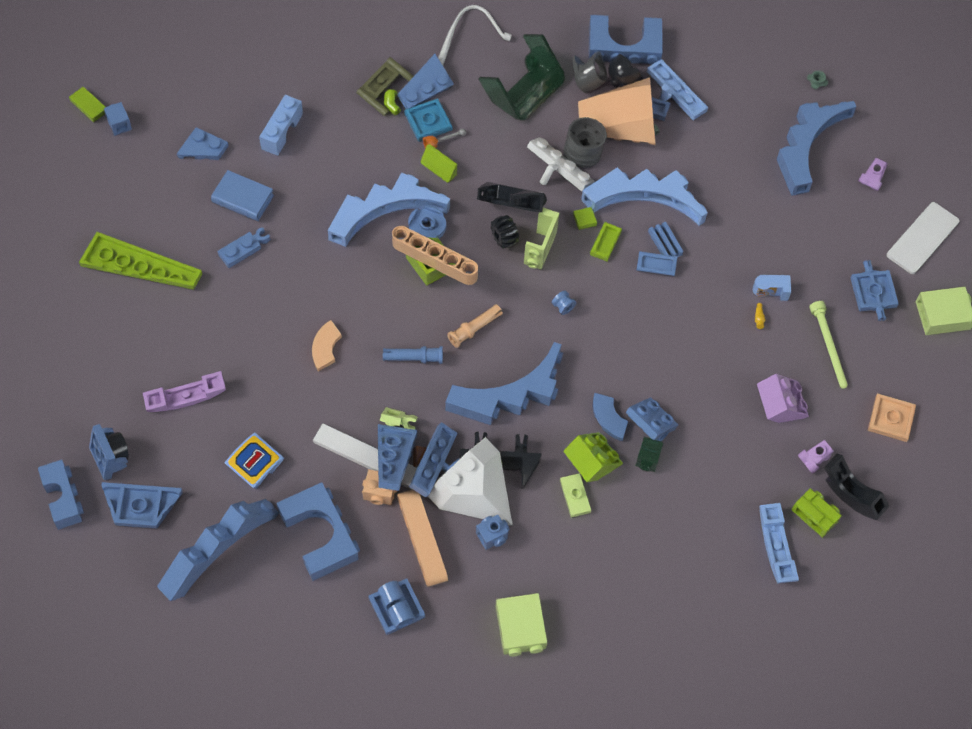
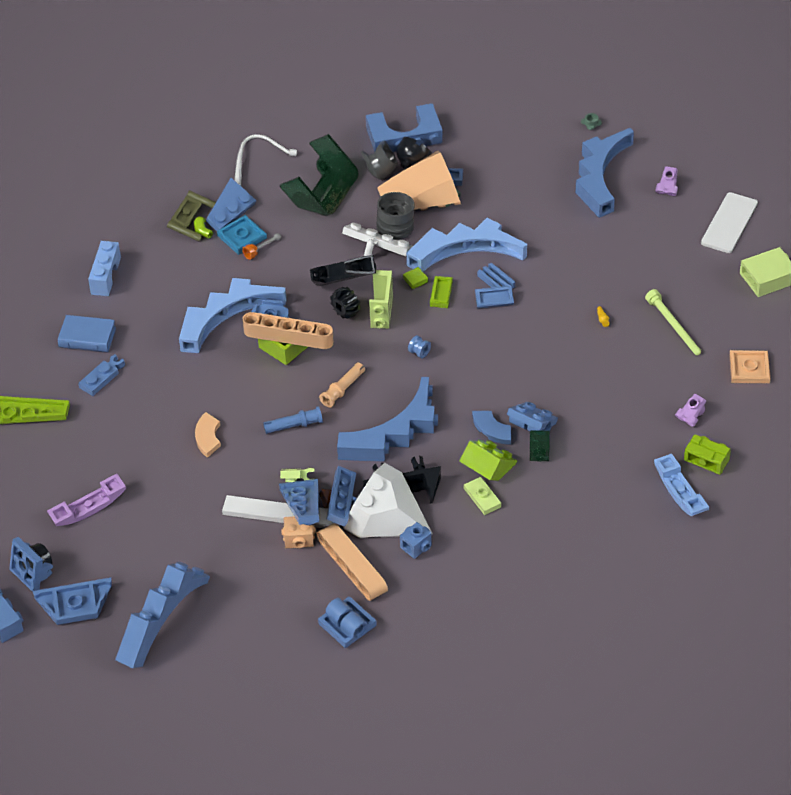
camera: 10 degrees left, 15 degrees down
(202, 146) = (34, 303): medium blue wing -> none
(254, 460) = (172, 540): slope -> none
(317, 503) = (246, 558): medium blue arch -> none
(439, 163) = (264, 265): lime slope -> none
(521, 624) = (467, 606): yellowish green brick -> none
(676, 89) = (464, 157): light blue plate -> none
(773, 285) = (606, 289): light blue leg -> none
(782, 399) = (645, 373): lavender slope -> none
(852, 492) = (732, 430): black arch -> none
(874, 290) = (699, 271): medium blue plate -> none

